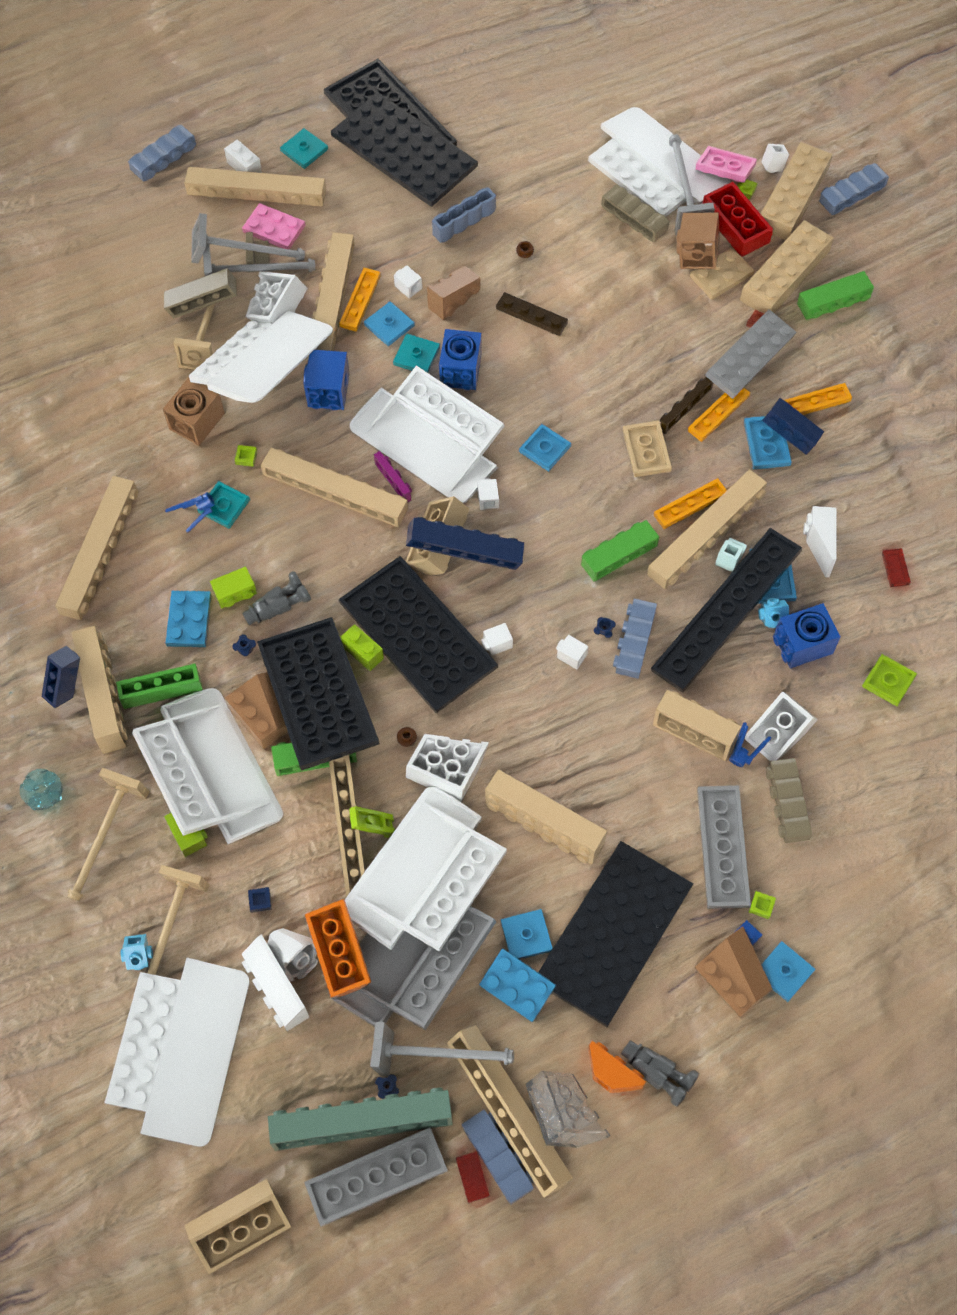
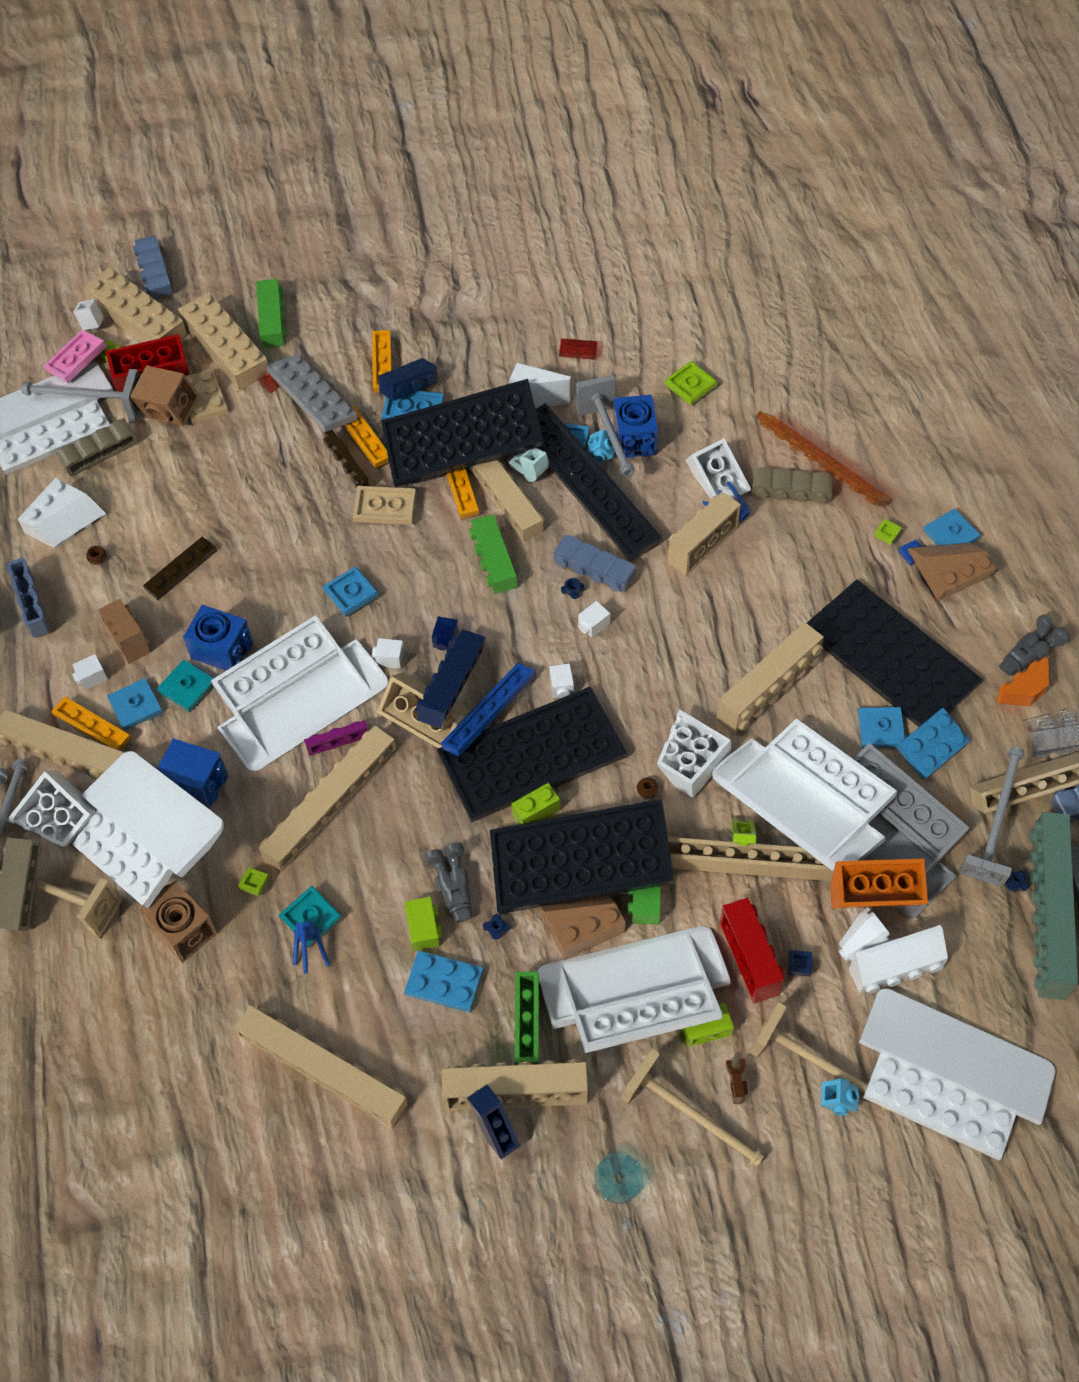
camera: 75 degrees left, 5 degrees down
(136, 865) = (738, 1087): none -> reddish brown plate
(257, 851) = (751, 950): none -> red brick
(449, 585) = (488, 709): none -> blue plate
(521, 530) = (444, 633): none -> clear blue brick
(555, 209) = (59, 514): none -> white wedge
(723, 847) = (825, 547): light grey plate -> none
(740, 486) = (462, 433): none -> black plate
(829, 590) = (598, 396): none -> light grey tile
(830, 824) = (826, 461): none -> clear orange plate

